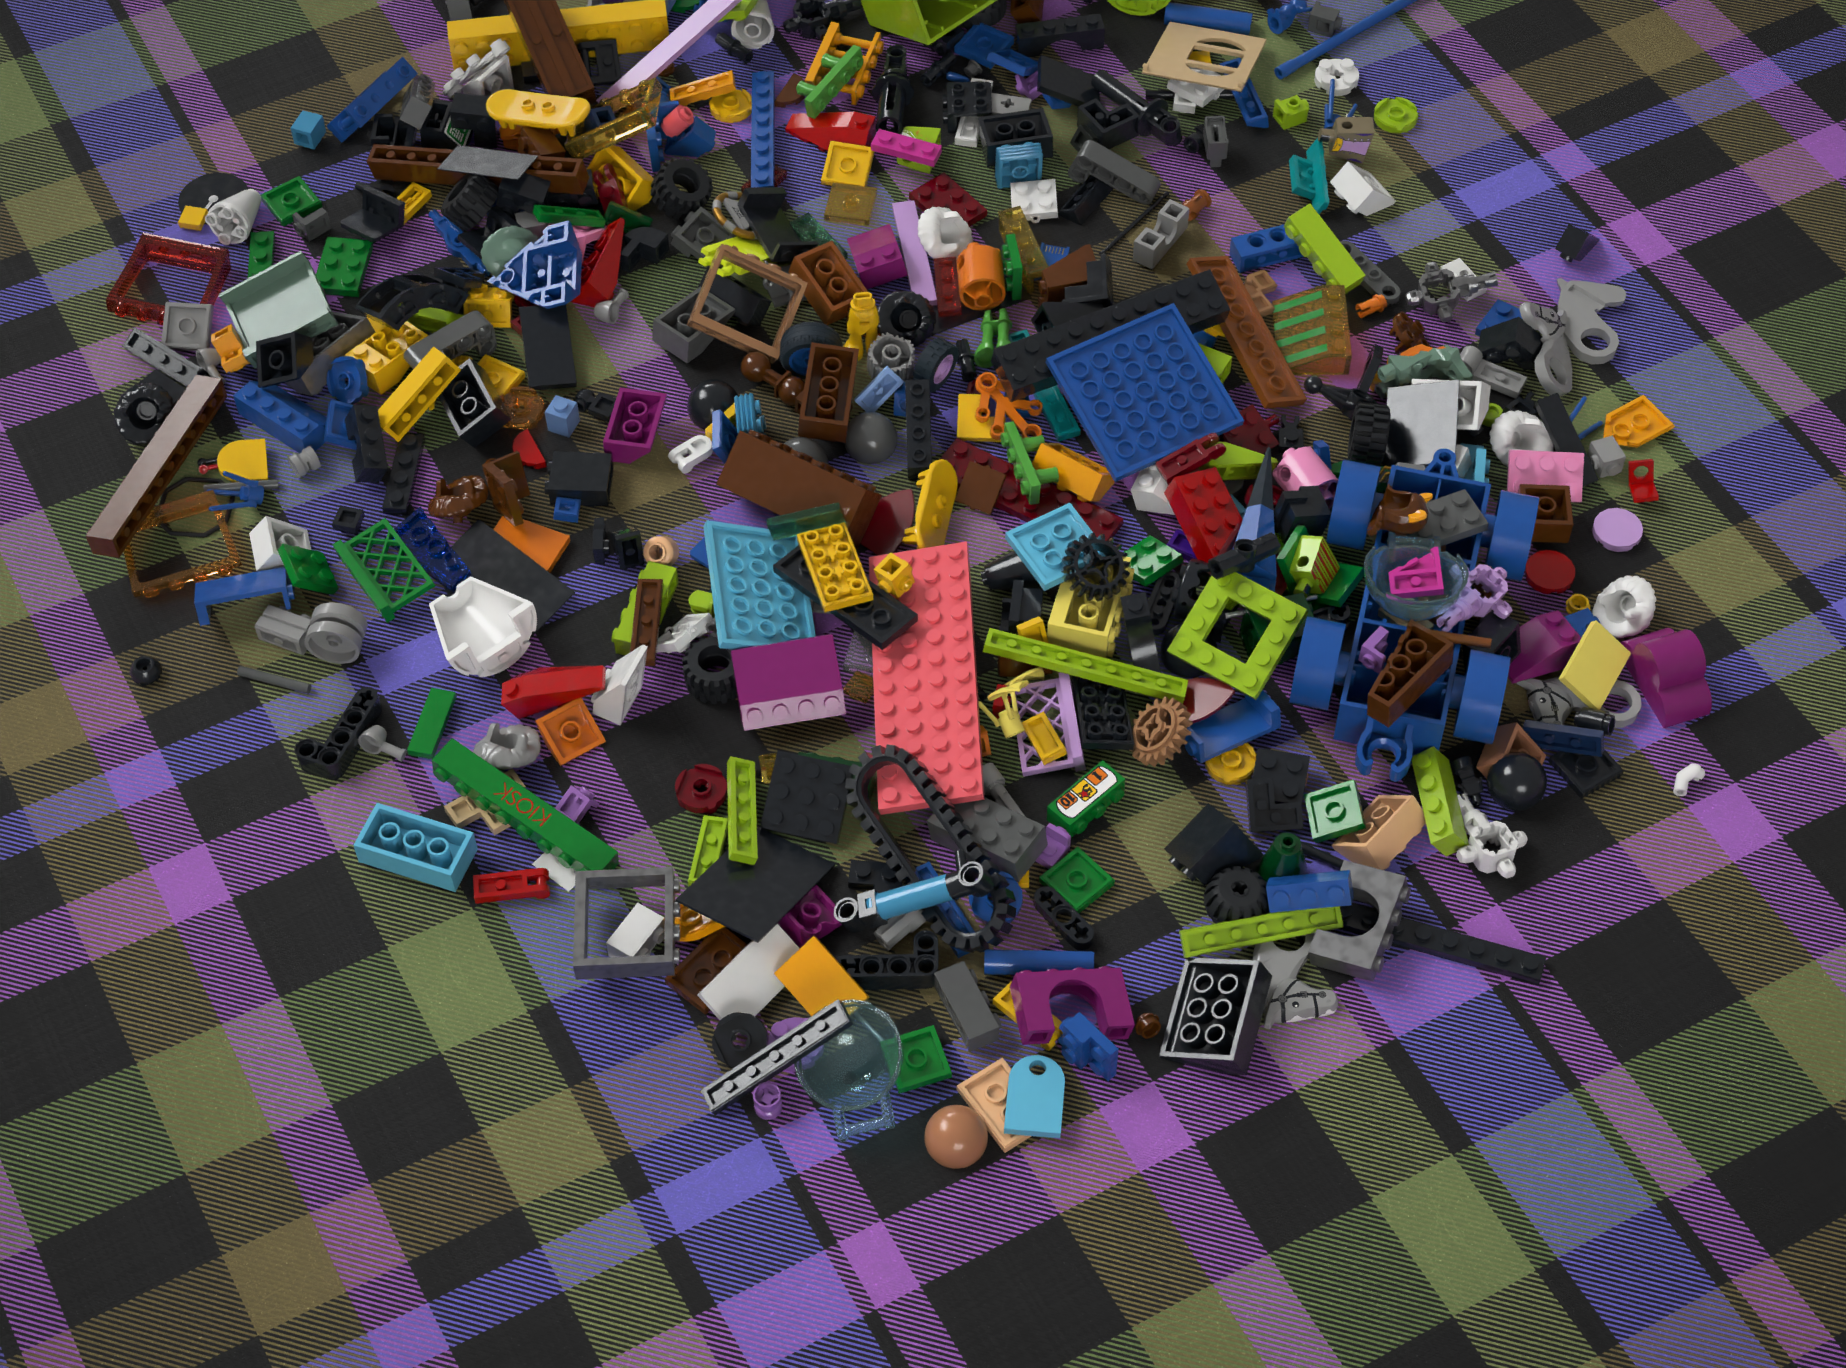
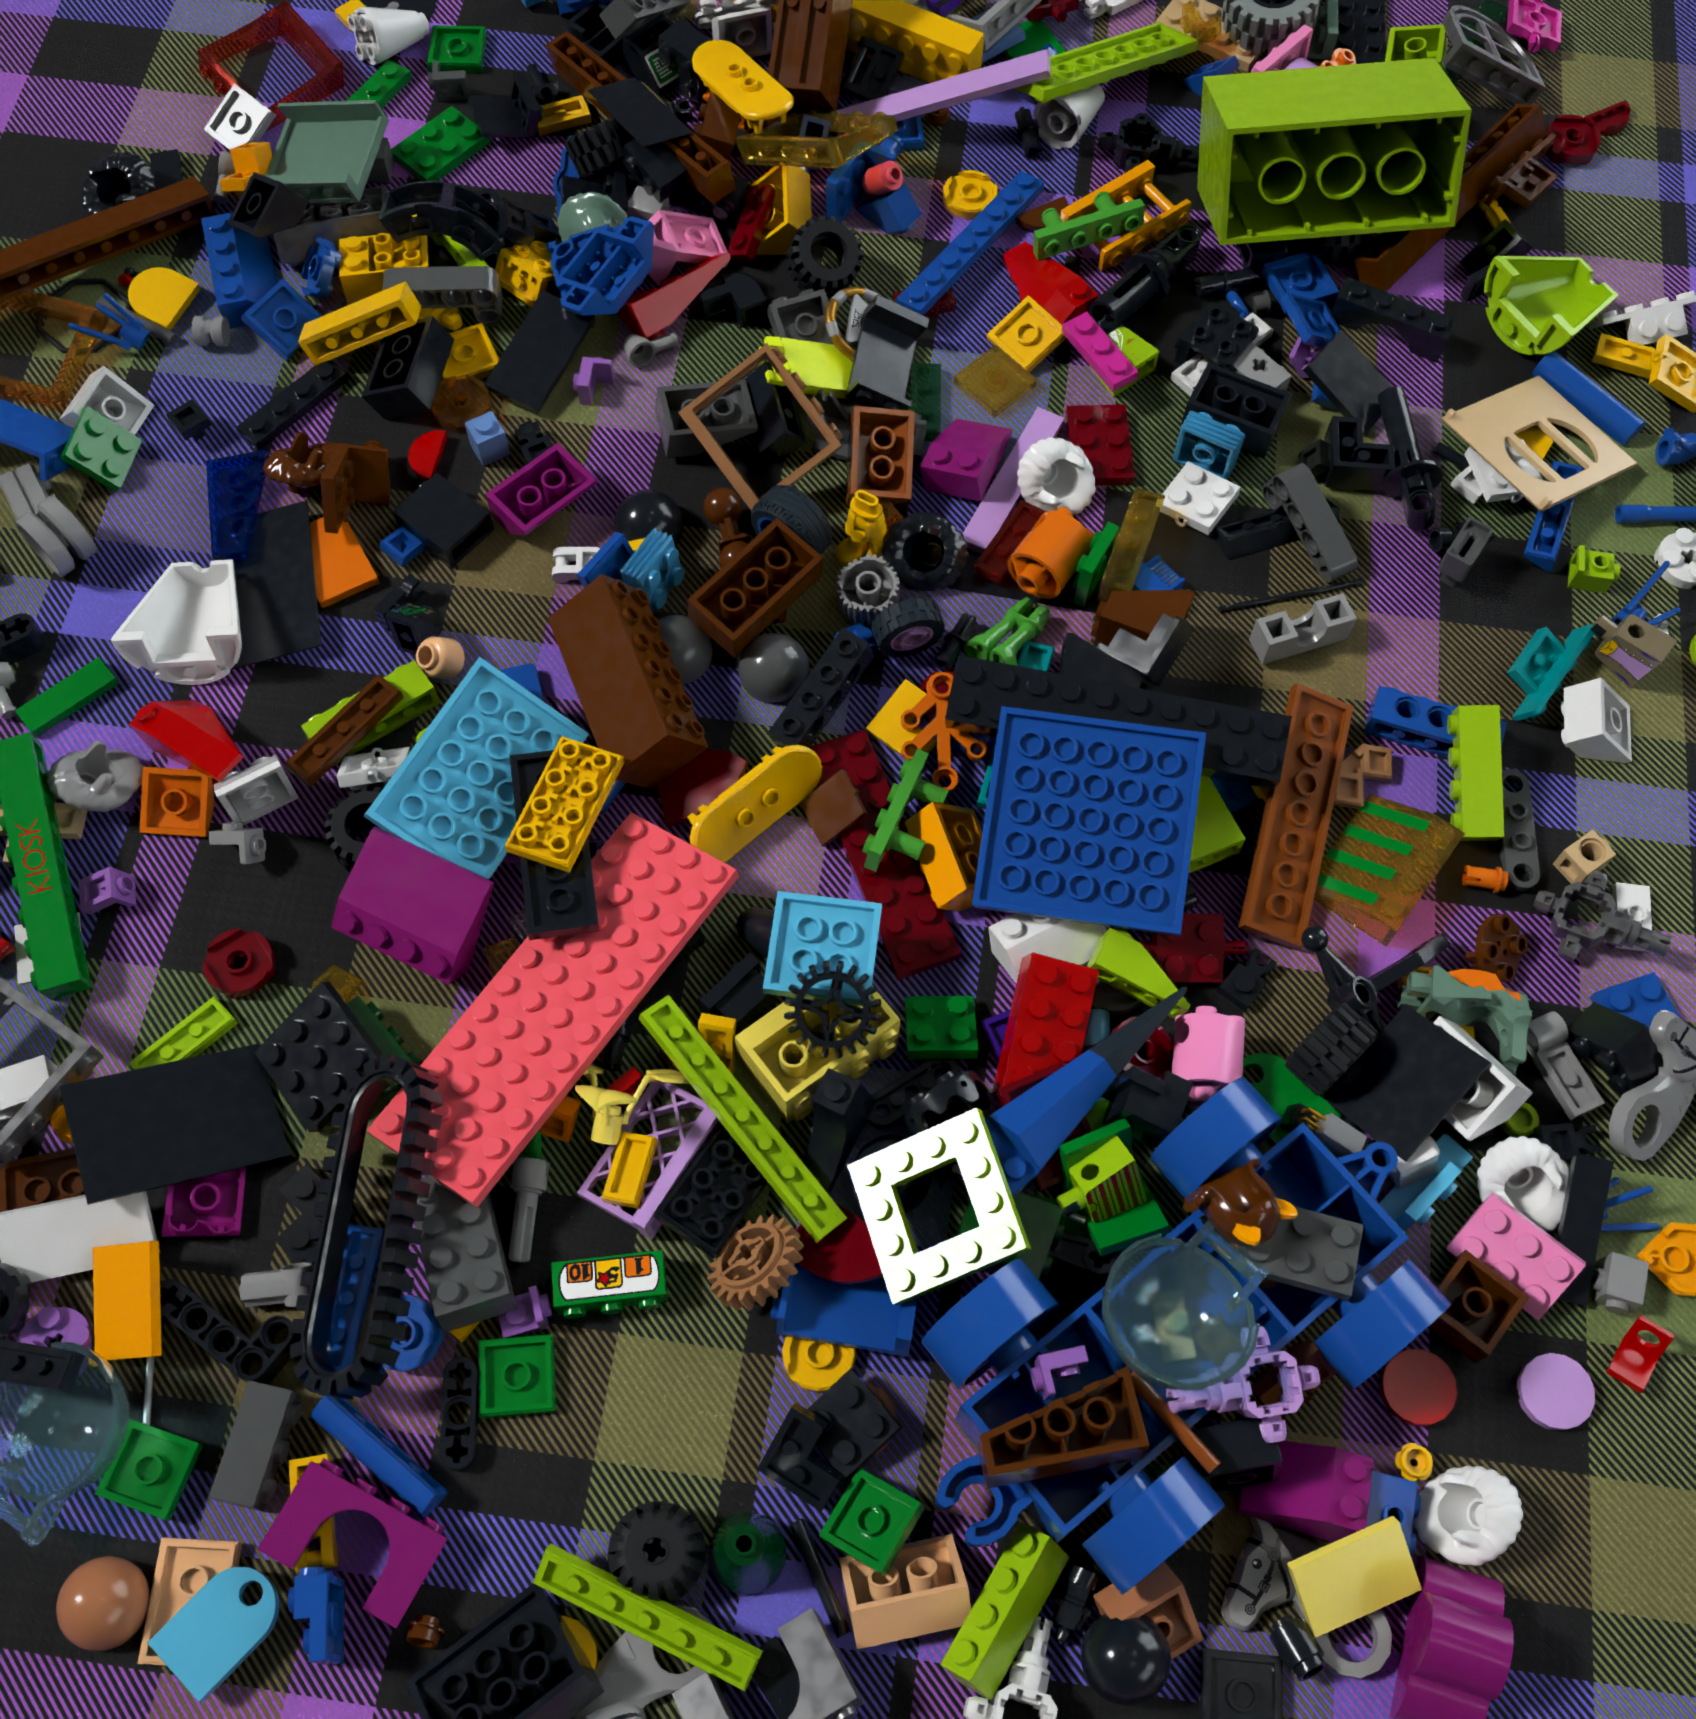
camera: 35 degrees right, 10 degrees up
(162, 357) = (193, 140): tile -> none
(364, 577) = (148, 495): green fence -> none
(370, 457) = (272, 347): black arch -> none
(576, 216) = (681, 220): green tile -> none
(592, 343) = (592, 371): none -> medium lavender bracket
(629, 722) = (250, 841): none -> light grey bracket
(632, 218) = (742, 257): dark green tile -> none
(703, 88) = (950, 159): light orange plate -> none
(742, 810) = (242, 1023): lime plate -> none
(805, 520) = (584, 727): clear green tile -> none
(875, 907) = (295, 1278): piece -> none
(878, 390) = (823, 618): light blue slope -> none
(894, 575) = (614, 859): yellow brick -> none
(1190, 457) = (1076, 938): dark red hinge -> none
(1197, 203) = (1376, 617): dark orange piece -> none
(1210, 845) = (682, 1462): black slope -> none
(1244, 555) = (1026, 1123): black piece -> none
(1309, 891) = (731, 1621): blue brick -> none
(1323, 451) = (1255, 1033): blue plate -> none
(1414, 263) = (1575, 866): none -> tan brick
(1418, 577) = (1188, 1313): dark pink wing -> none
(1566, 738) = (1236, 1643): dark blue plate -> none

